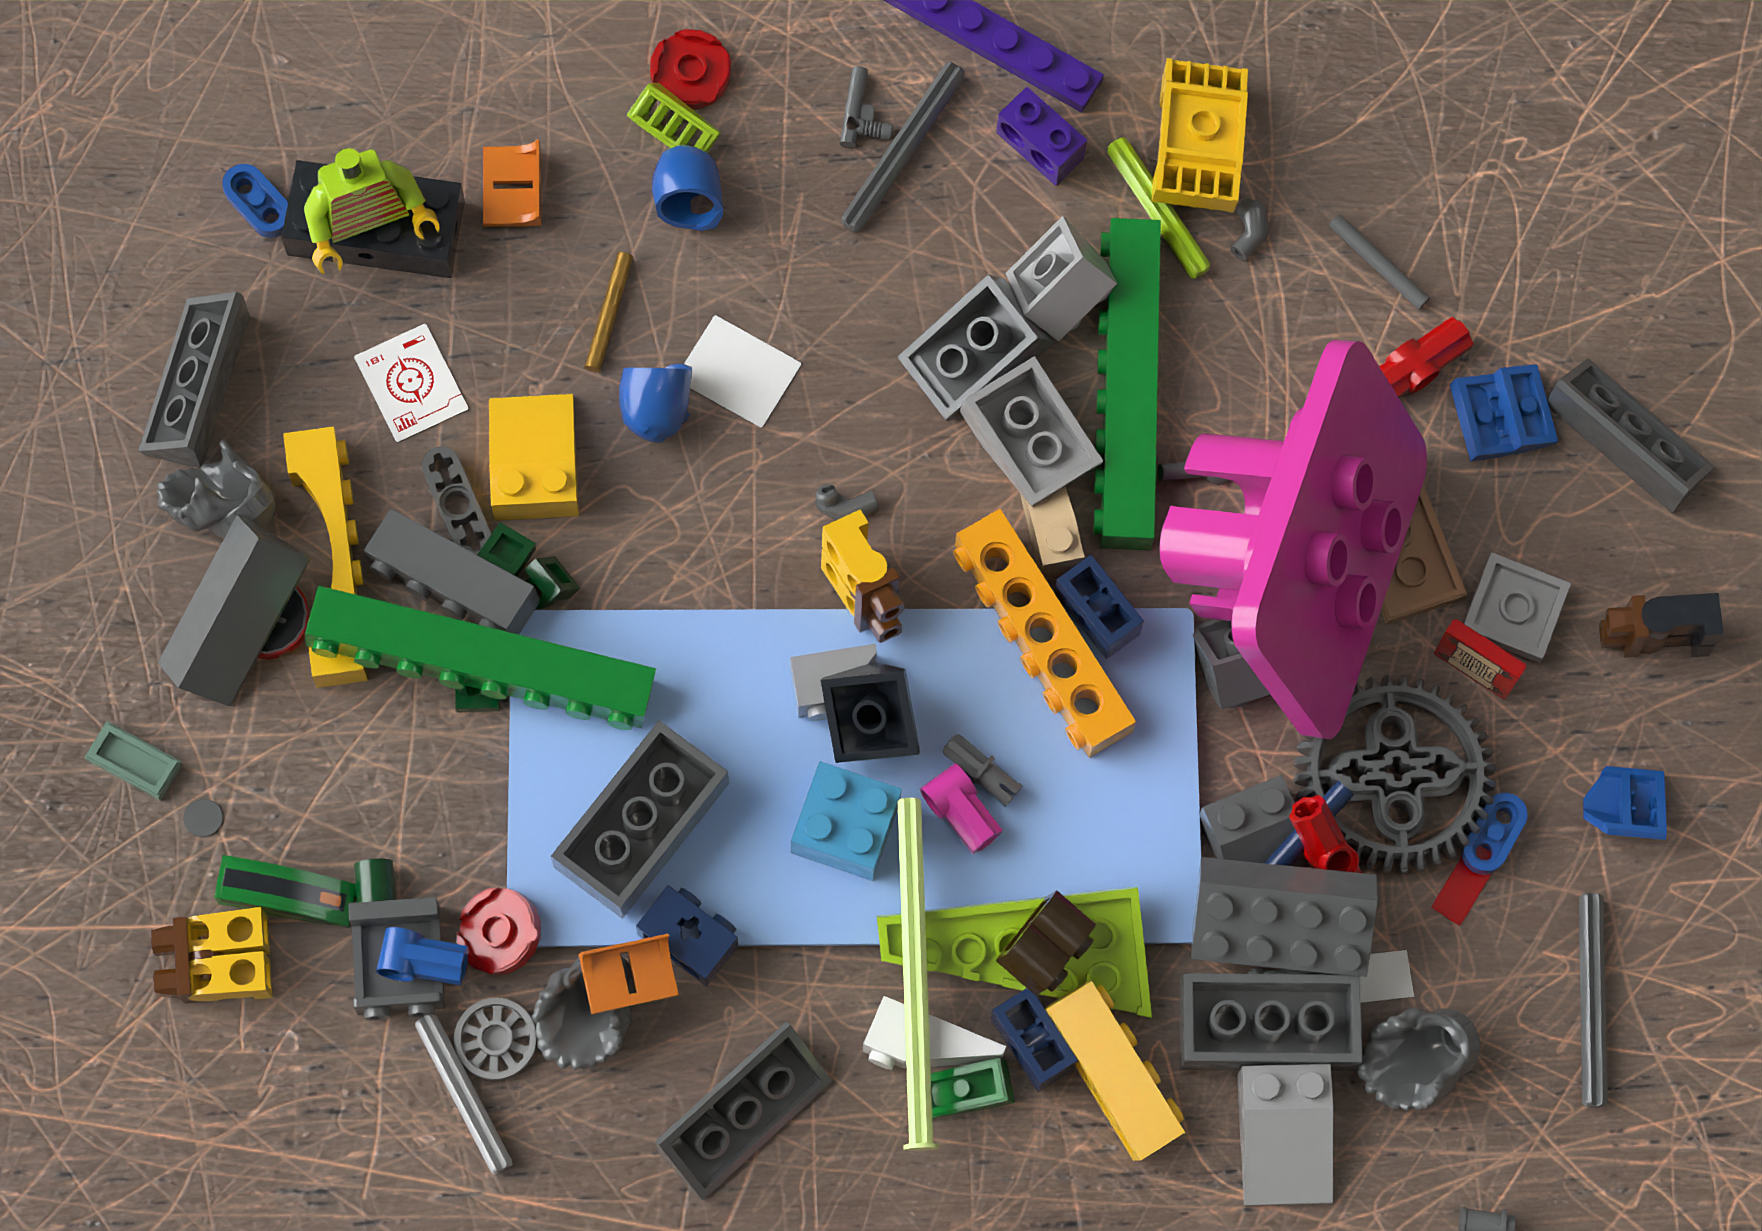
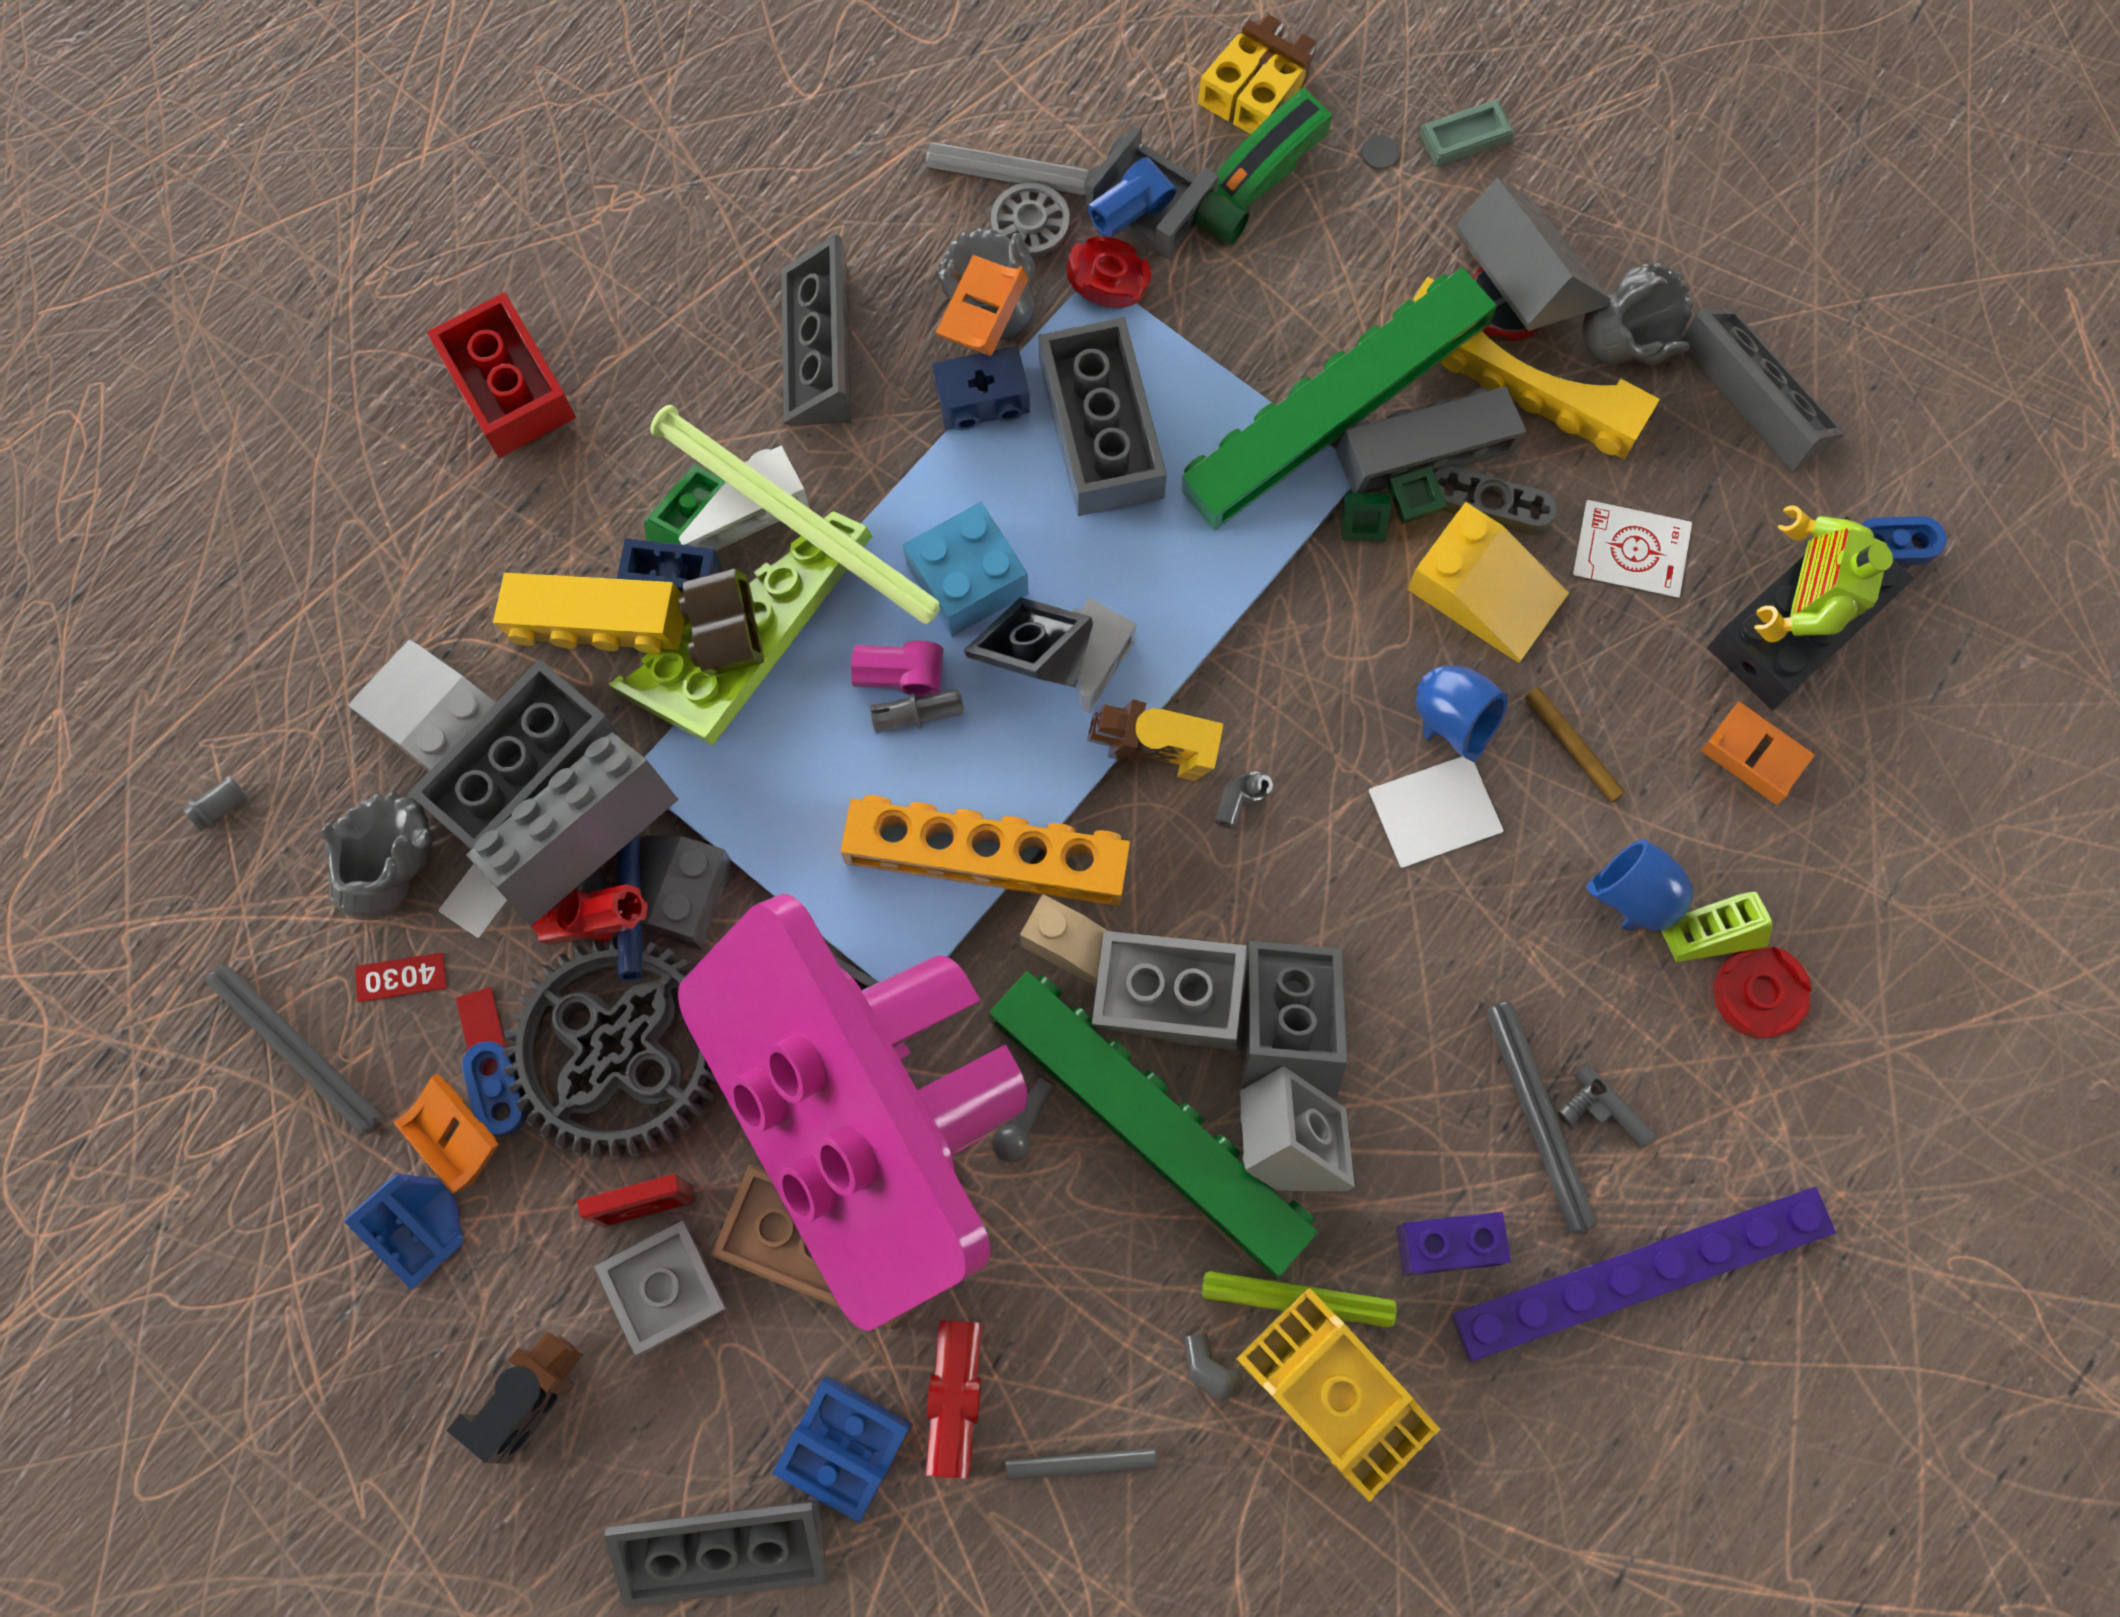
camera: 135 degrees right, 0 degrees up
(1098, 606) = (965, 908): dark blue brick -> none
(1480, 978) = (400, 977): none -> red sticker
(1558, 814) = (428, 1124): none -> orange piece

